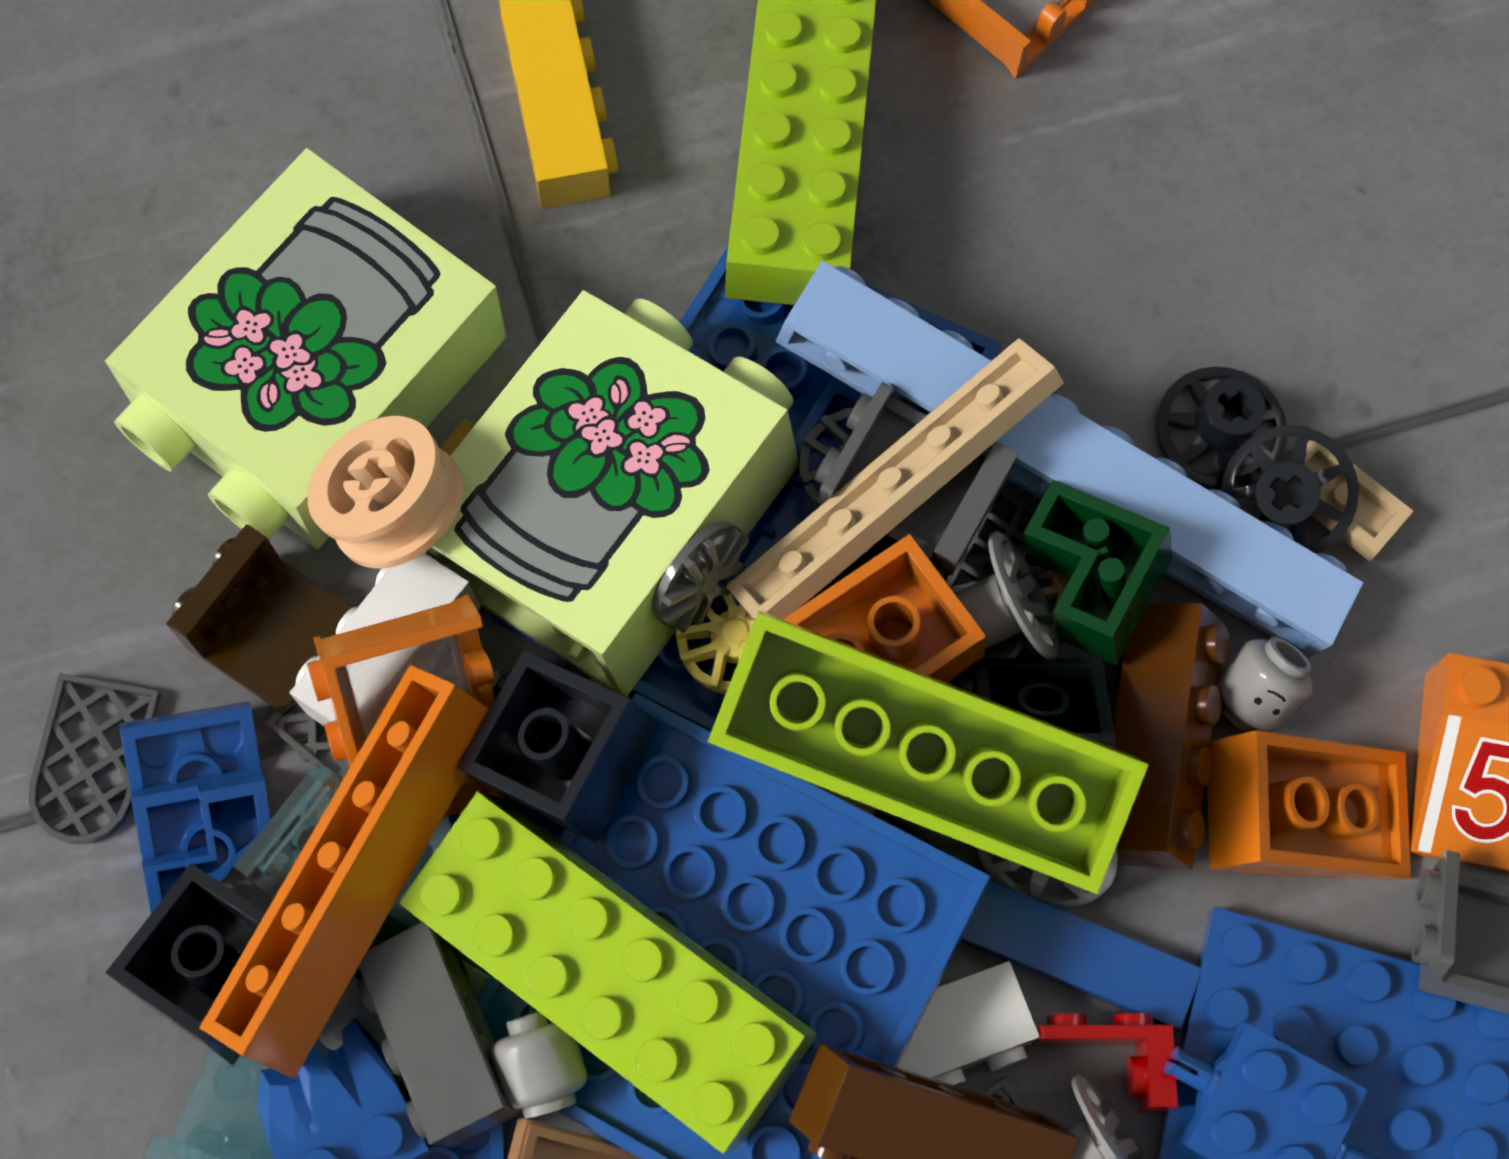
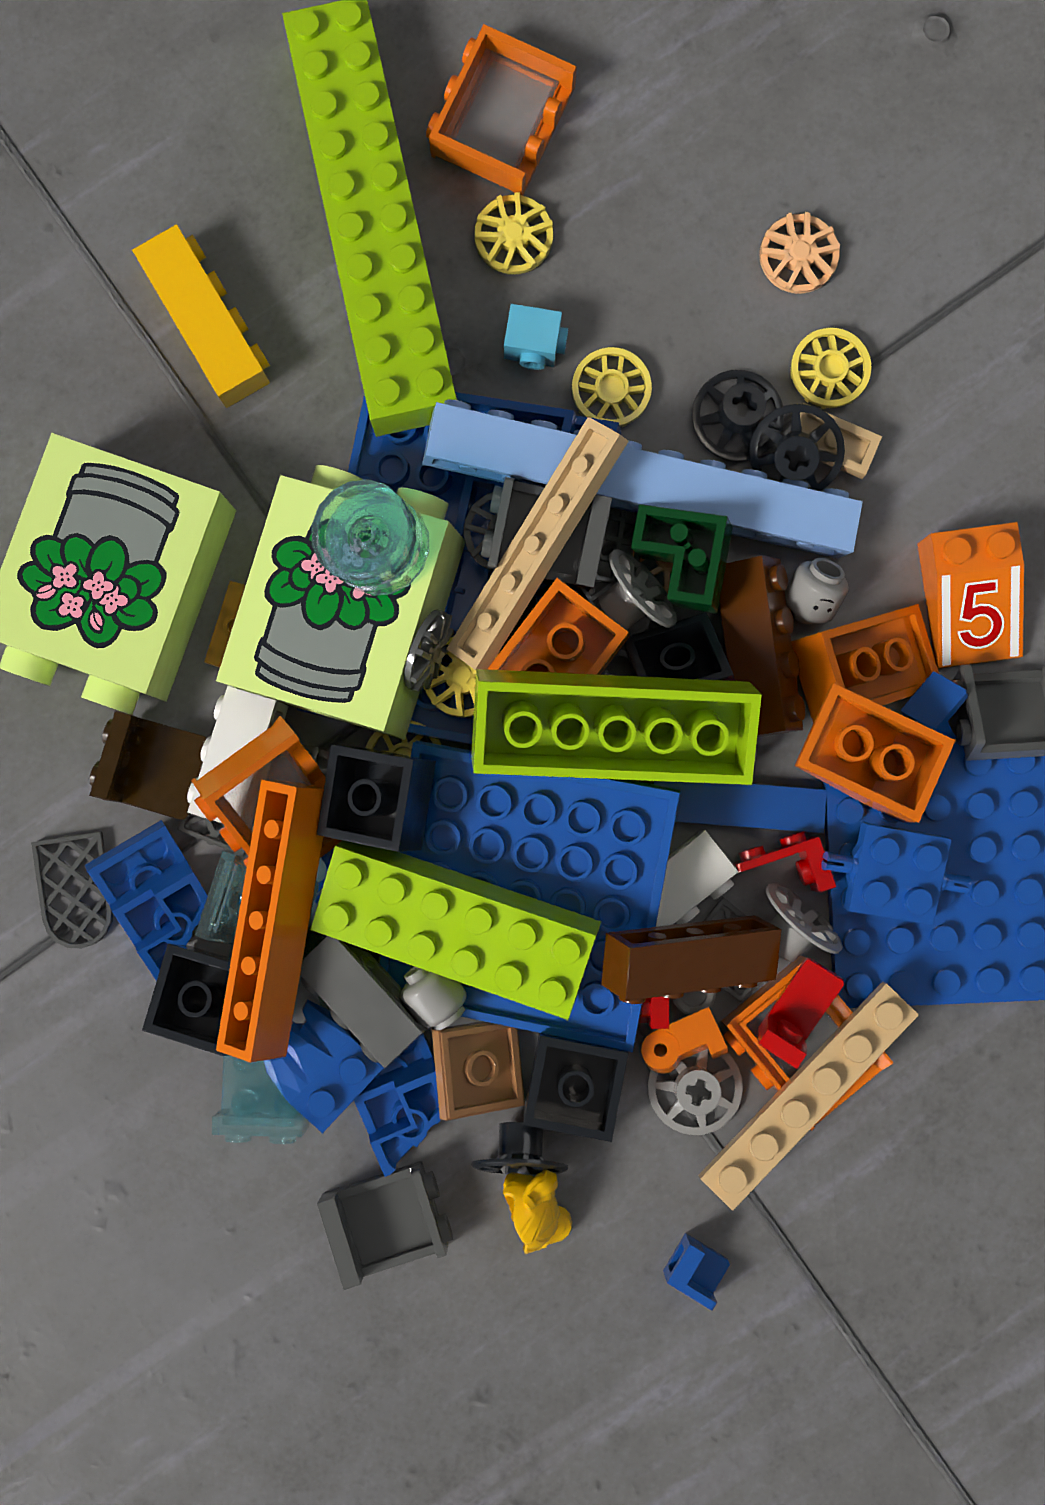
camera: 15 degrees left, 15 degrees up
(385, 492) = (208, 688): light nougat wheel -> none
(675, 390) = (370, 537): none -> clear light blue wheel
(977, 241) = (534, 336): none -> medium azure brick
(991, 115) = (513, 233): none -> light yellow wheel
(1063, 337) = (612, 385): none -> light yellow wheel
(1286, 926) = (874, 754): none -> orange slope
(1363, 252) = (799, 252): none -> light nougat wheel
(1367, 405) = (830, 367): none -> light yellow wheel
(1383, 899) = (935, 703): none -> blue panel

